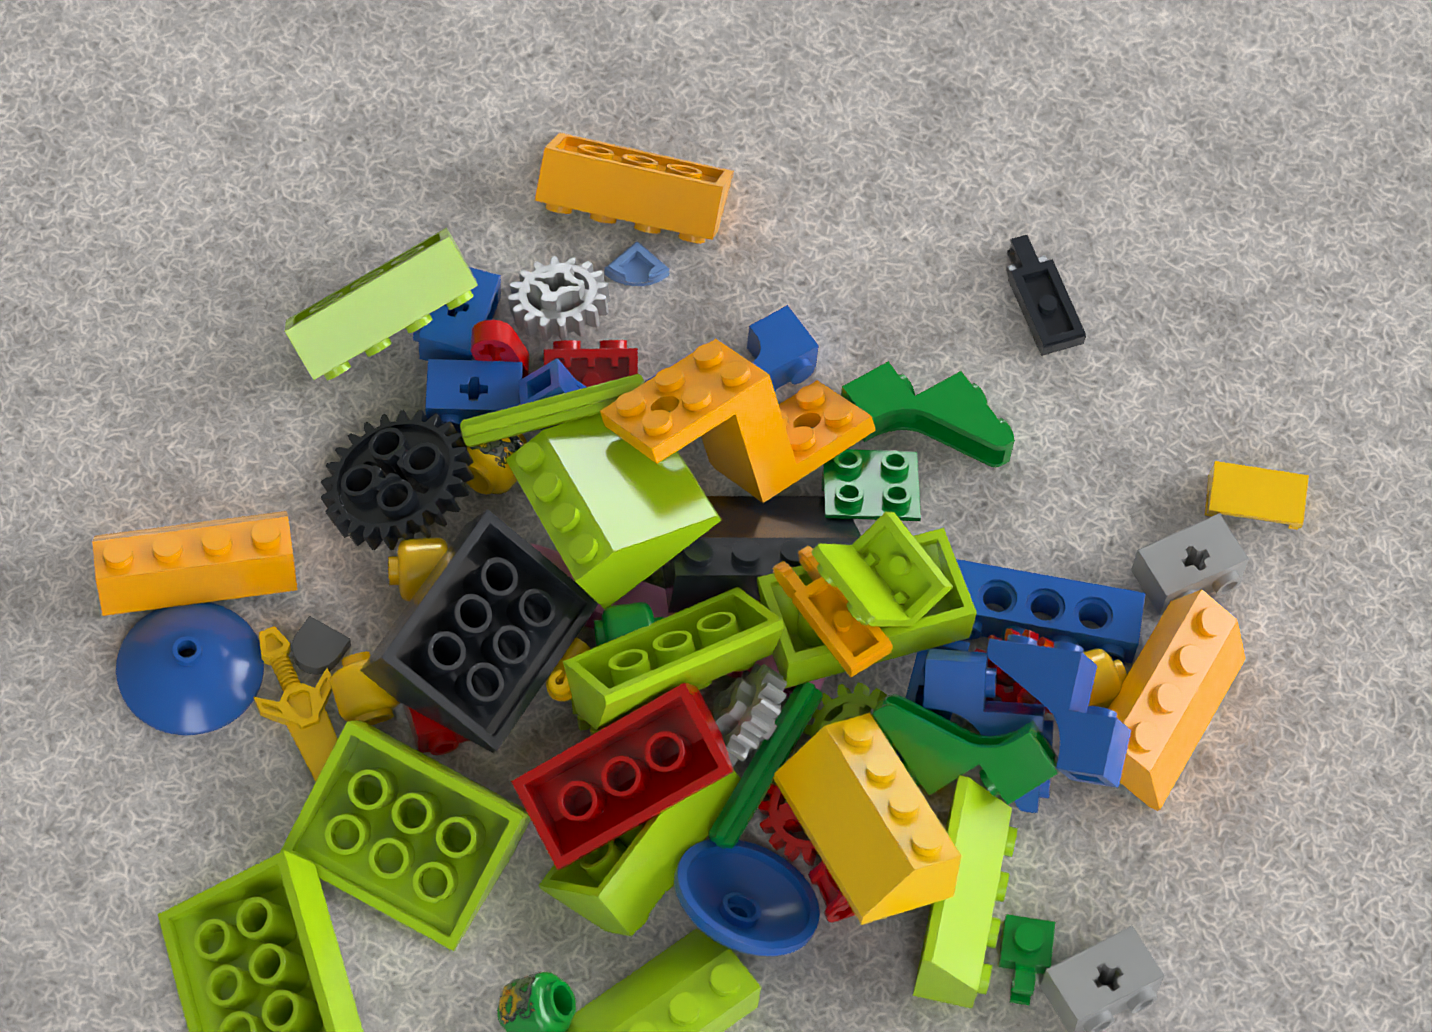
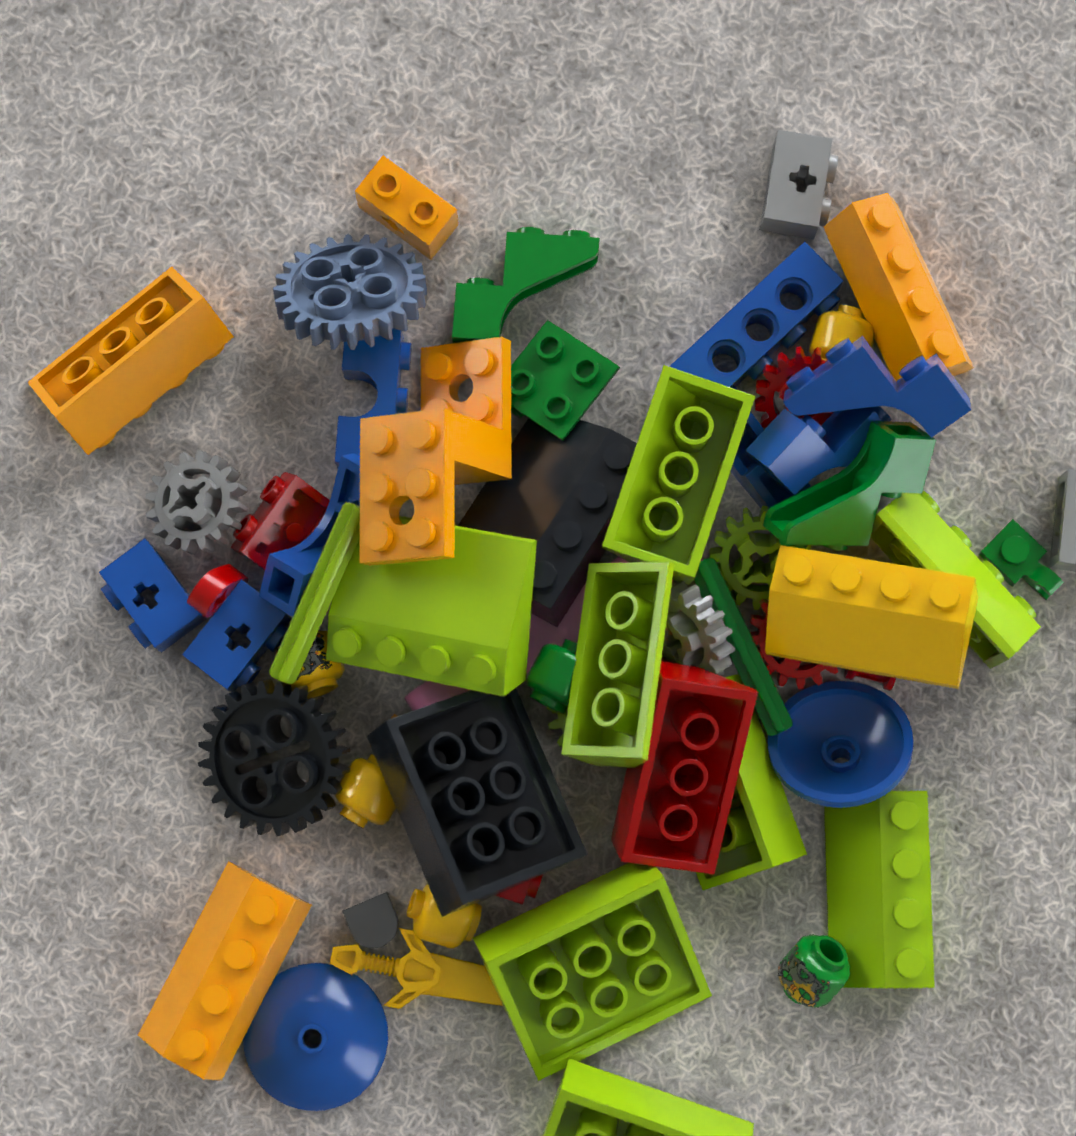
camera: 50 degrees left, 20 degrees up
(381, 304) = (102, 659): lime slope -> none
(557, 682) = (551, 744): yellow arm -> none
(636, 266) = (206, 413): medium blue tile -> none
(816, 290) = (350, 291): none -> sand blue gear
(826, 611) = (685, 512): light orange hinge -> none
(883, 574) = (686, 453): lime bracket -> none
(920, 294) = (407, 207): none -> light orange brick
(1043, 298) = (477, 111): black hinge -> none
(1256, 494) = (775, 87): yellow hinge -> none

